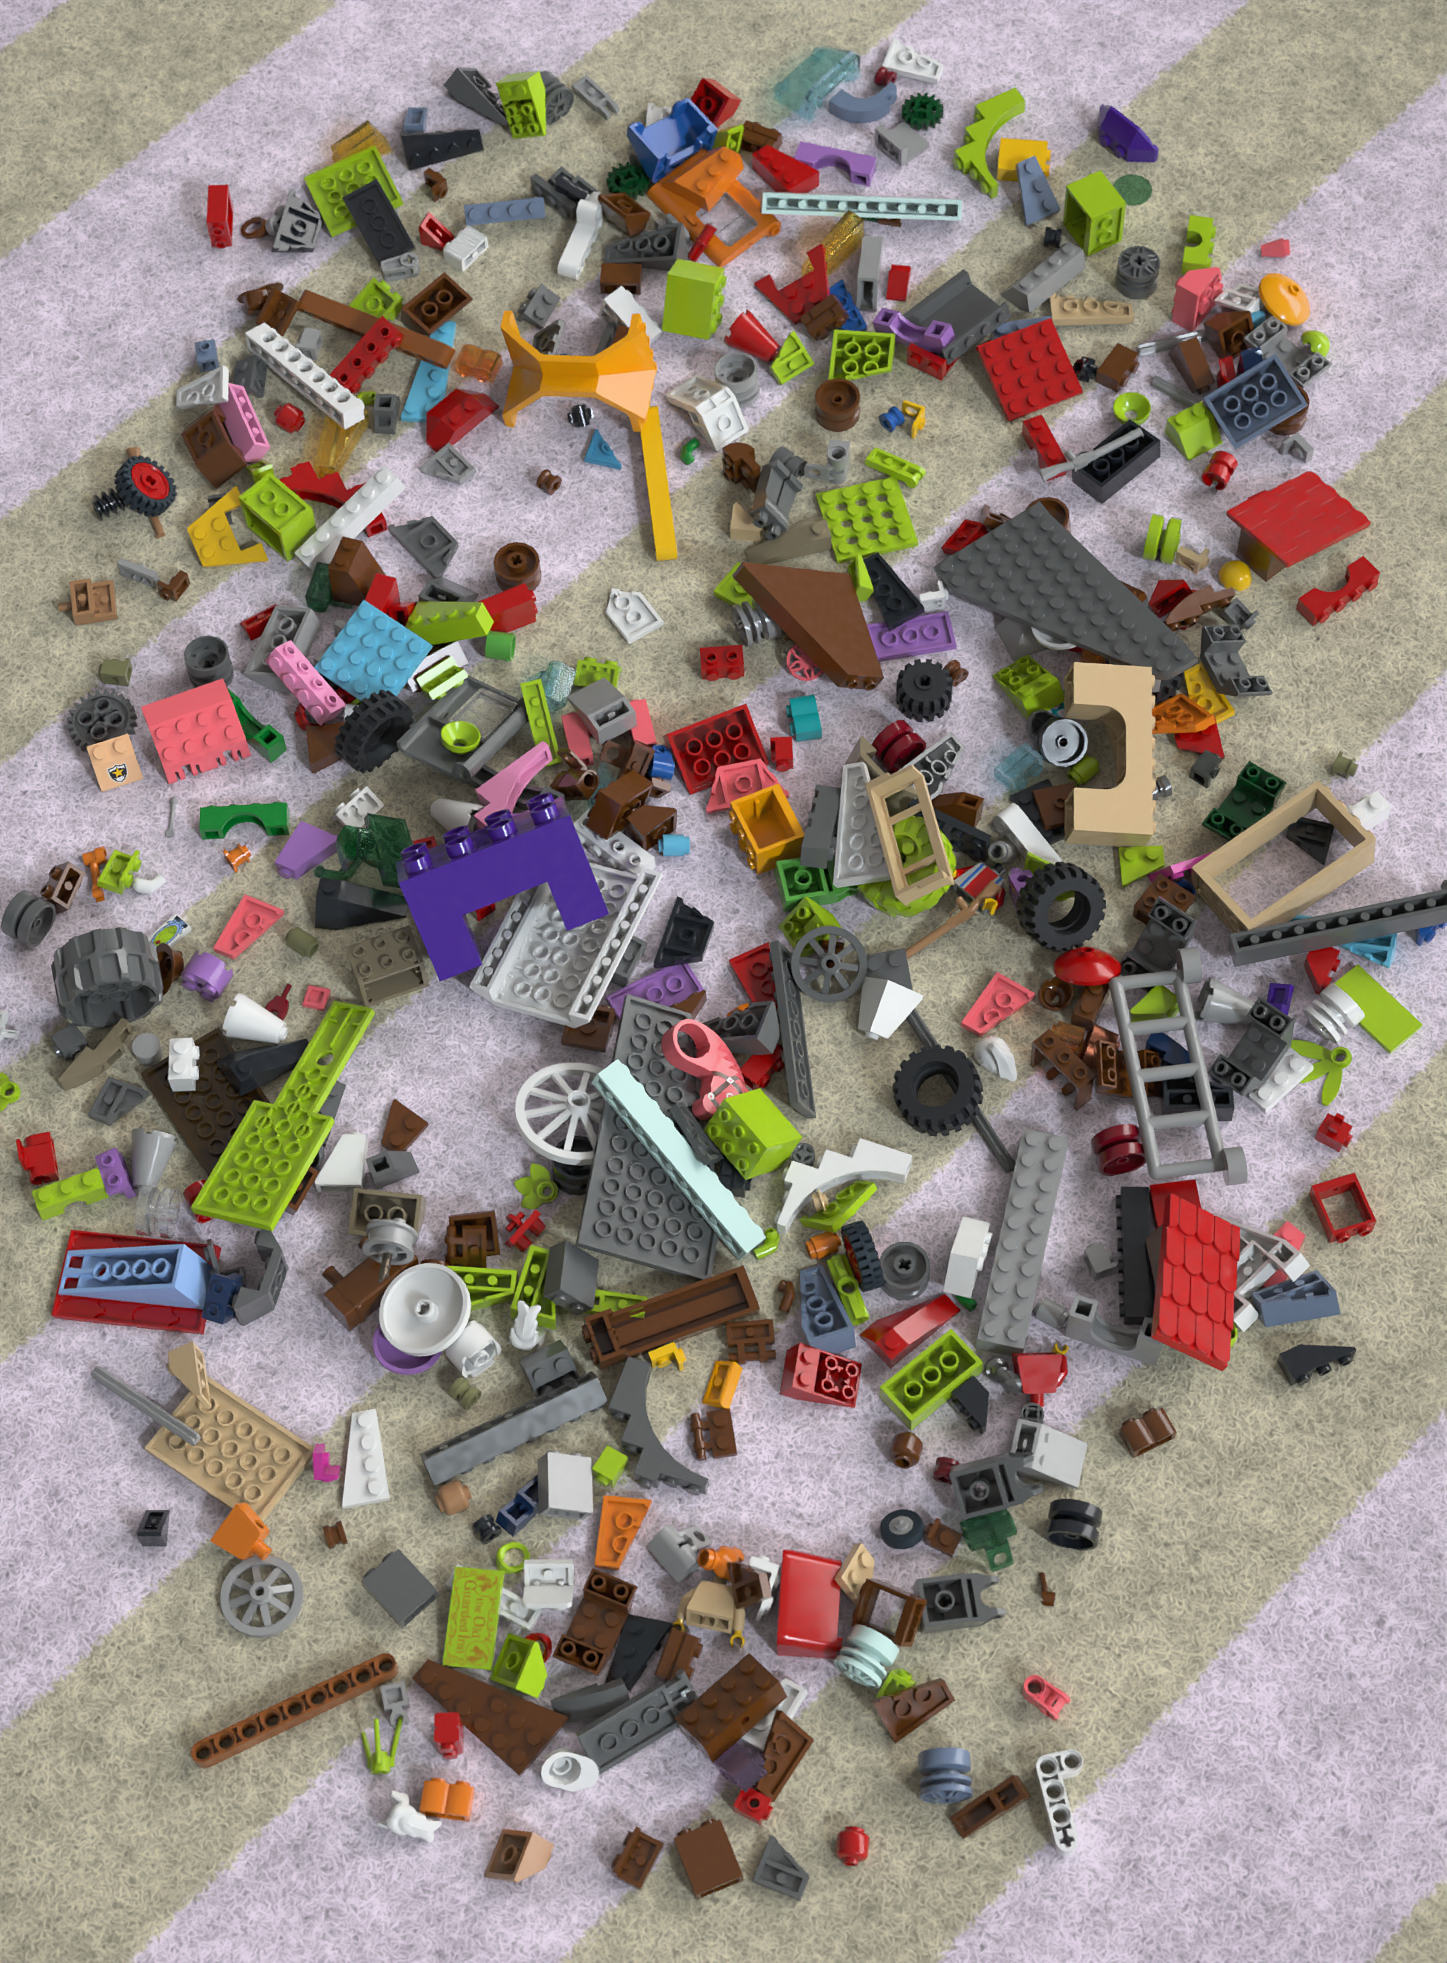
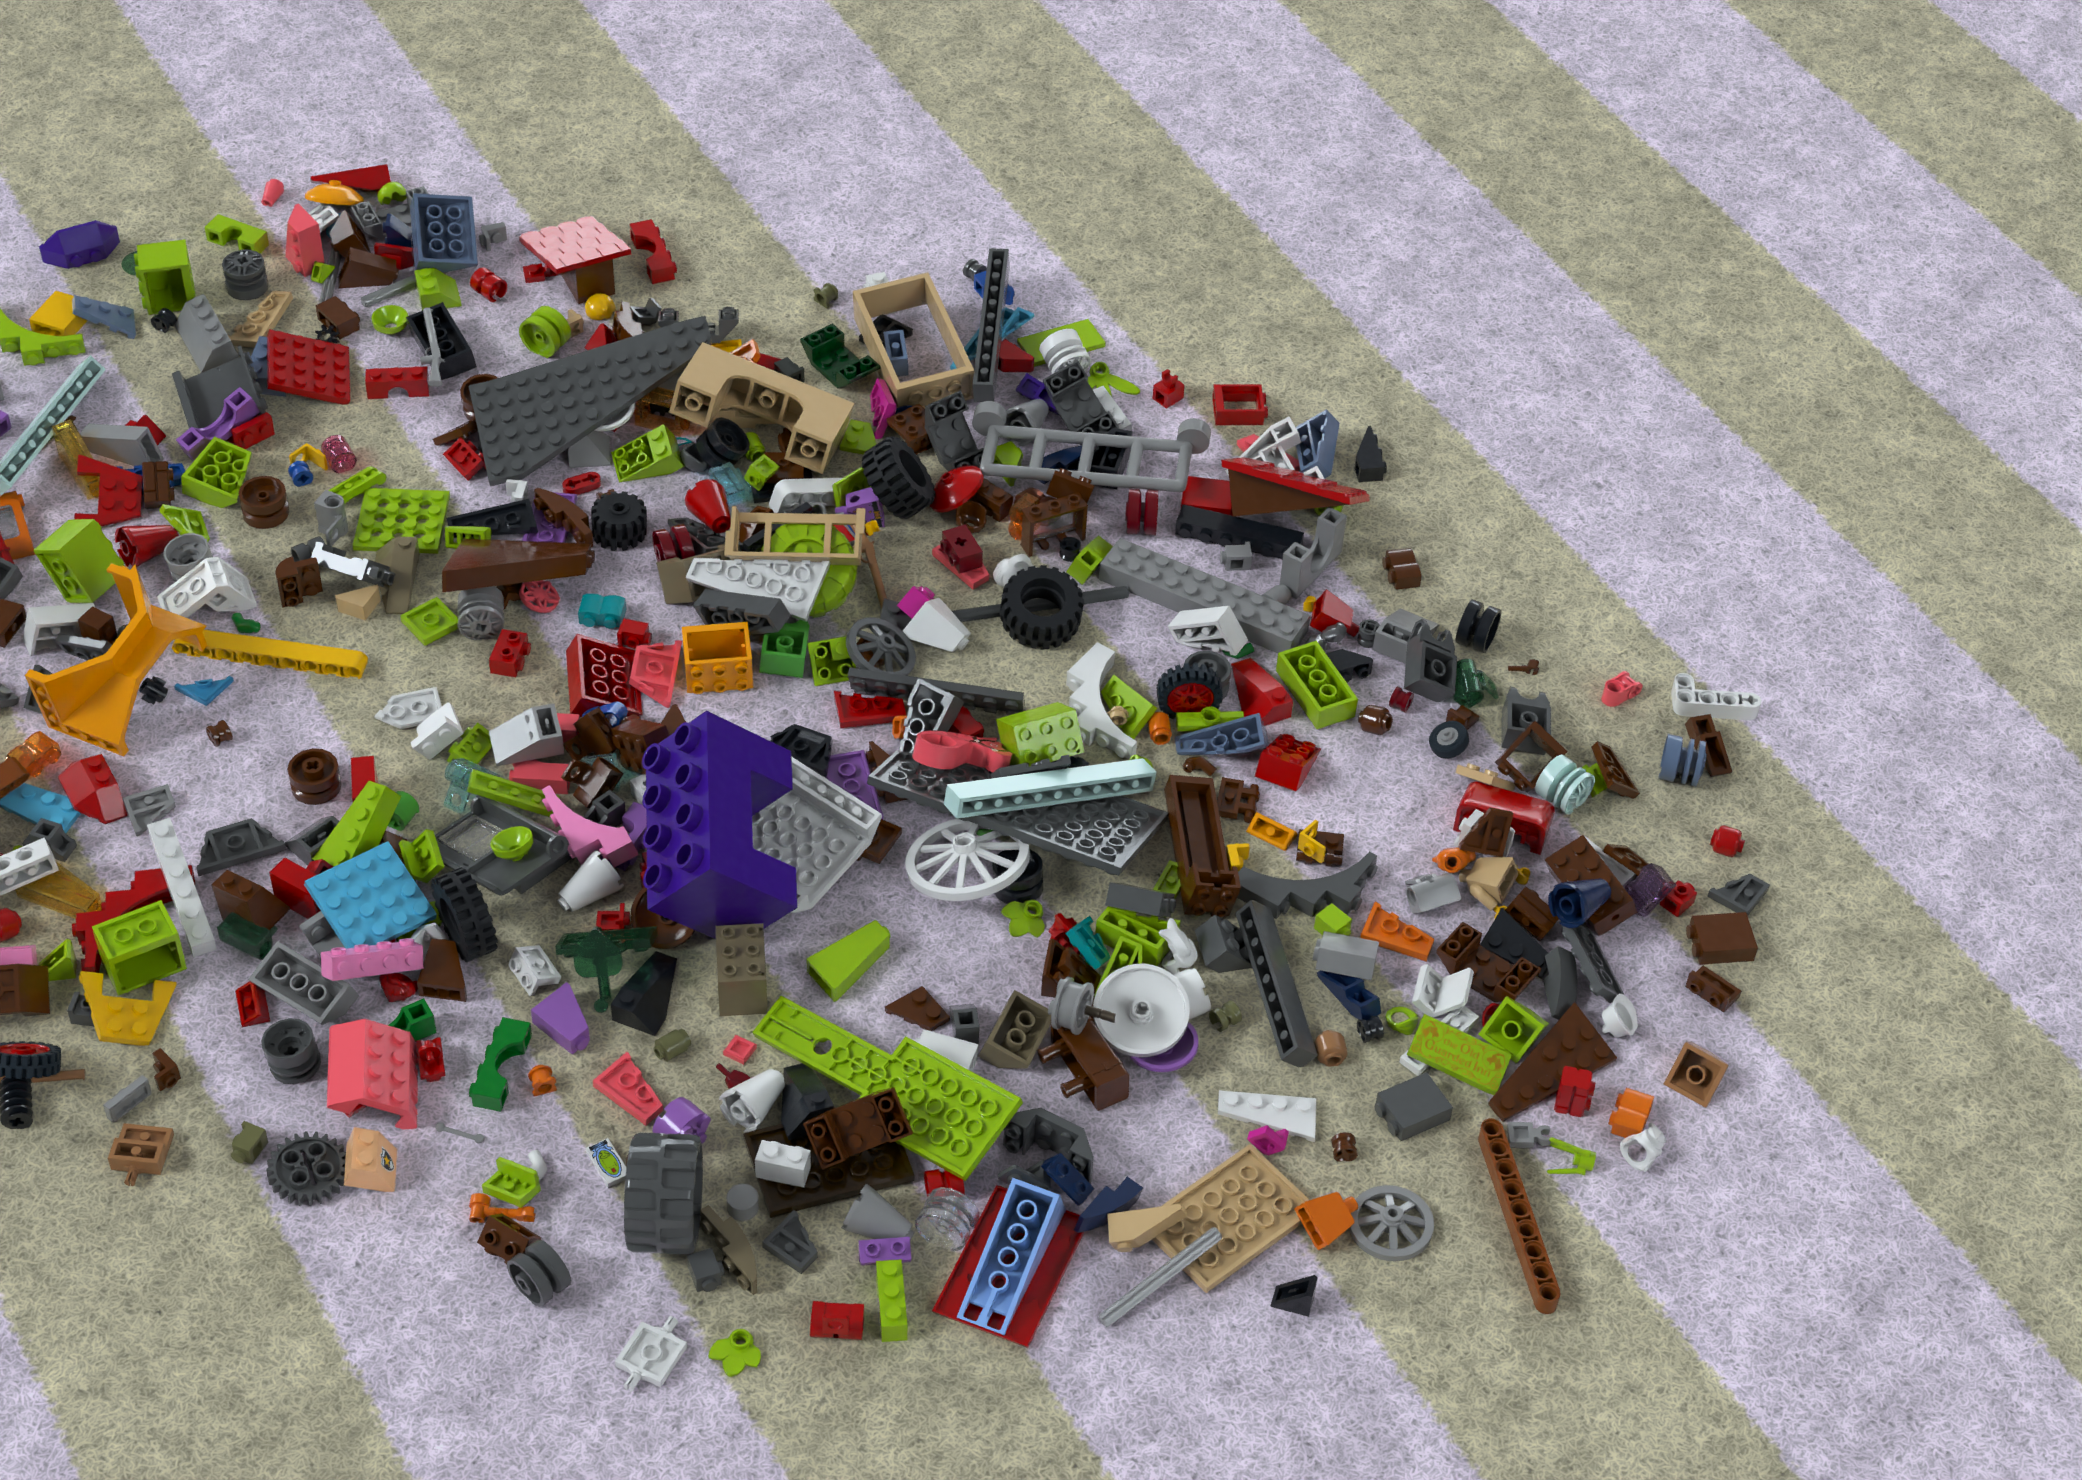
camera: 80 degrees left, 15 degrees down
(210, 1342) = (1108, 1202): none -> dark blue slope
(224, 1101) = (857, 1126): none -> reddish brown slope
(233, 766) = (430, 1059): none -> red hips
(438, 1052) = (848, 959): none -> lime slope
(505, 1245) = (1088, 944): none -> teal wing
(599, 644) = (437, 732): none -> white bracket
(677, 1691) = (1577, 900): none -> dark blue cone
(693, 1418) = (1309, 845): none -> yellow bracket
(908, 977) = (915, 600): none -> dark pink slope
(912, 647) = (564, 513): none -> reddish brown slope
(927, 437) = (338, 453): none -> clear pink wheel
(969, 760) = (709, 504): none -> red cone
(975, 642) = (582, 483): none -> red beam
(996, 995) = (961, 549): none -> dark red brick
(1034, 786) = (760, 471): none -> lime bracket
(1043, 1121) = (1089, 559): none -> lime slope
(1049, 1093) = (1069, 548): none -> black wheel
(1178, 330) = (321, 271): none -> lime slope
(1264, 853) = (896, 350): none -> sand blue brick
(1327, 315) = (362, 179): none -> red wedge

